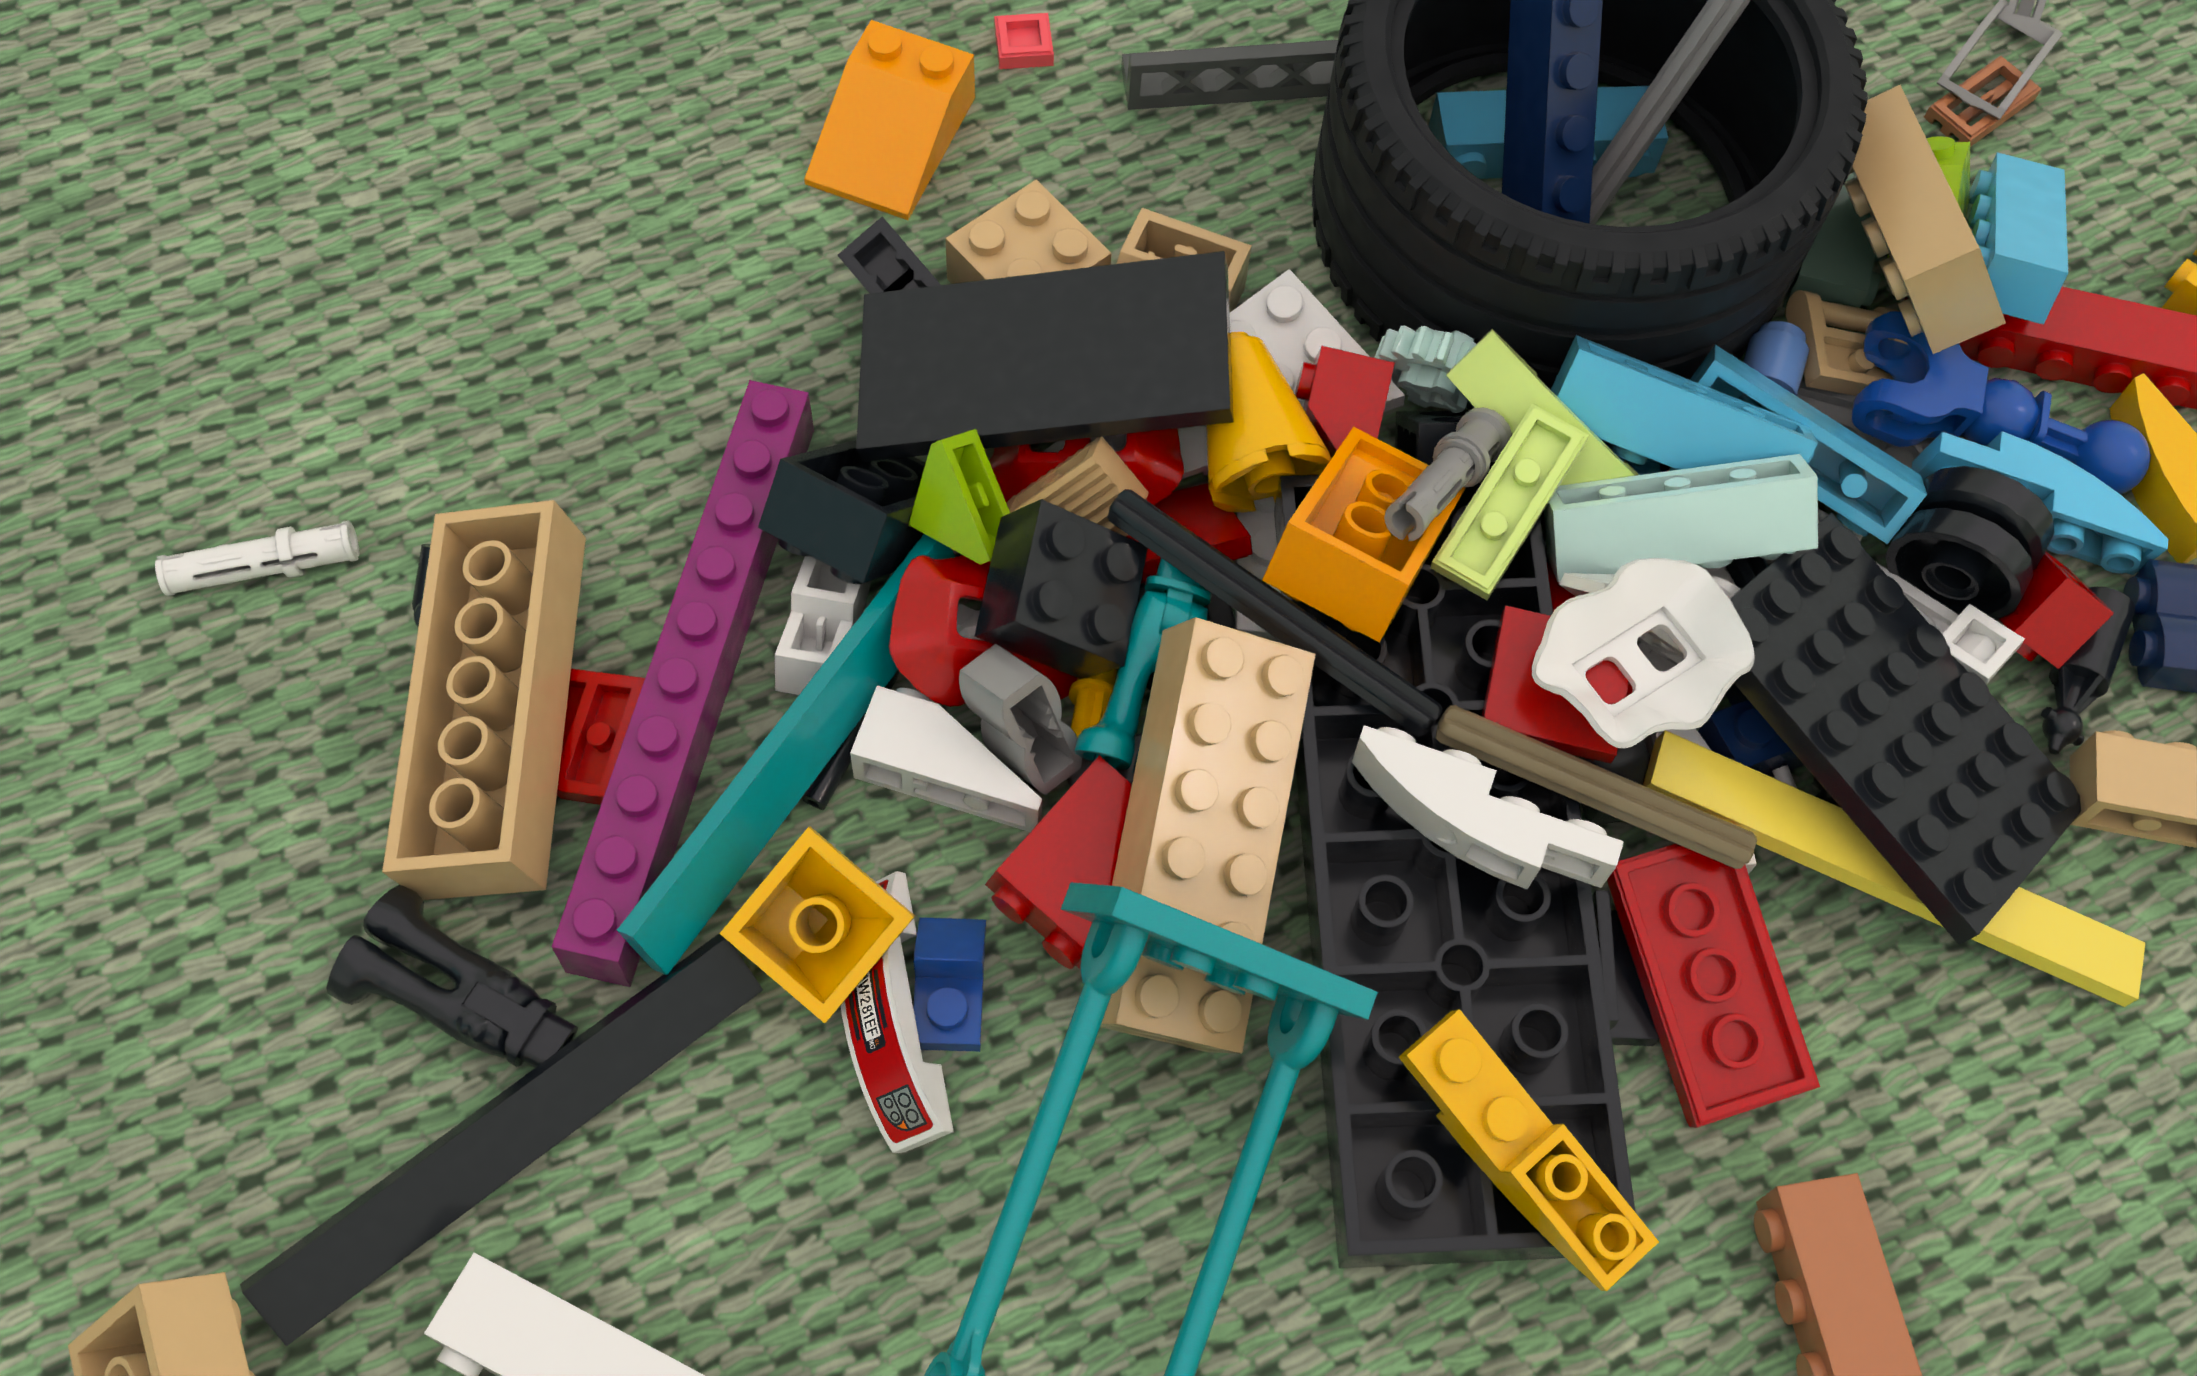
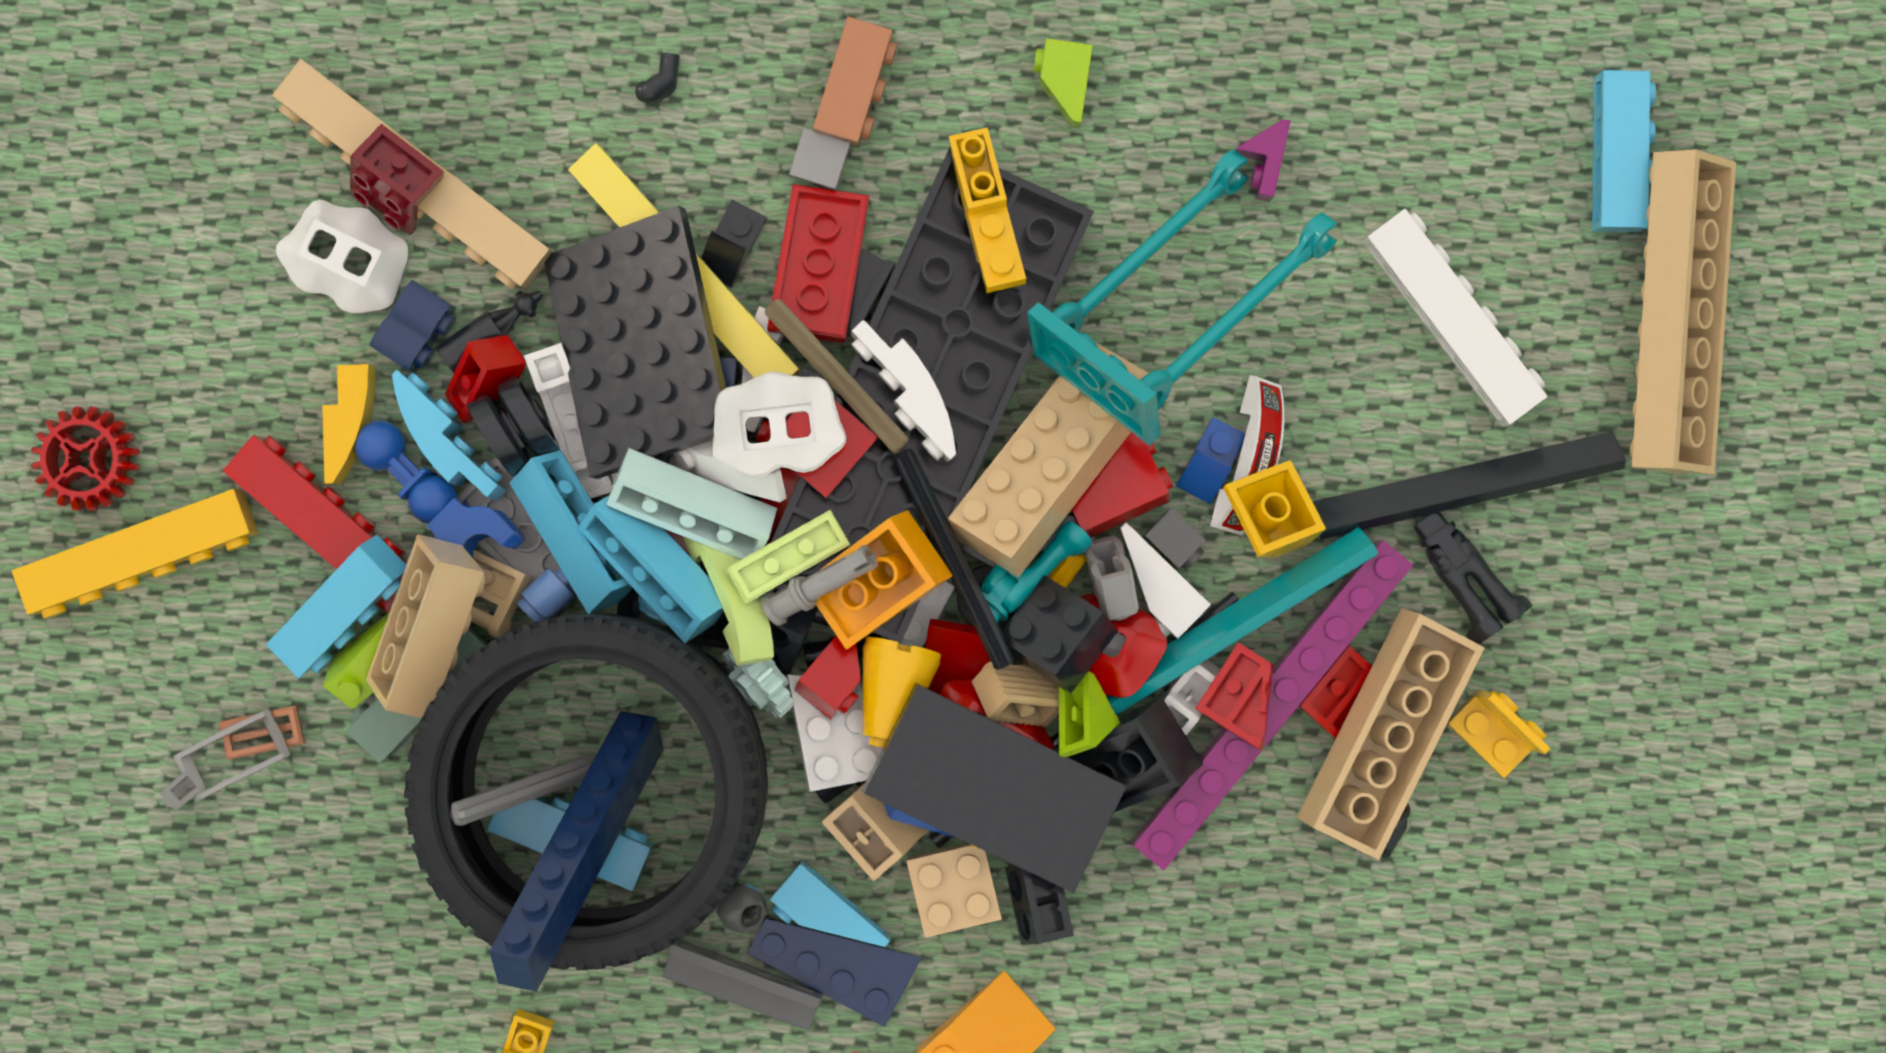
camera: 150 degrees left, 25 degrees up
(284, 553) = (1473, 894): white pin -> none
(316, 782) = (1496, 732): none -> yellow bracket
(742, 633) = (1241, 696): none -> red wing
(949, 833) = (1175, 539): none -> dark grey brick
(1106, 135) = (846, 970): none -> dark blue wing
(1187, 180) = (820, 906): none -> medium azure slope
(1286, 139) = (742, 908): none -> dark grey piece
(1803, 1140) = (819, 159): none -> light grey piece
(1845, 957) = (732, 241): none -> black slope
(2108, 1144) = (661, 84): none -> black arm

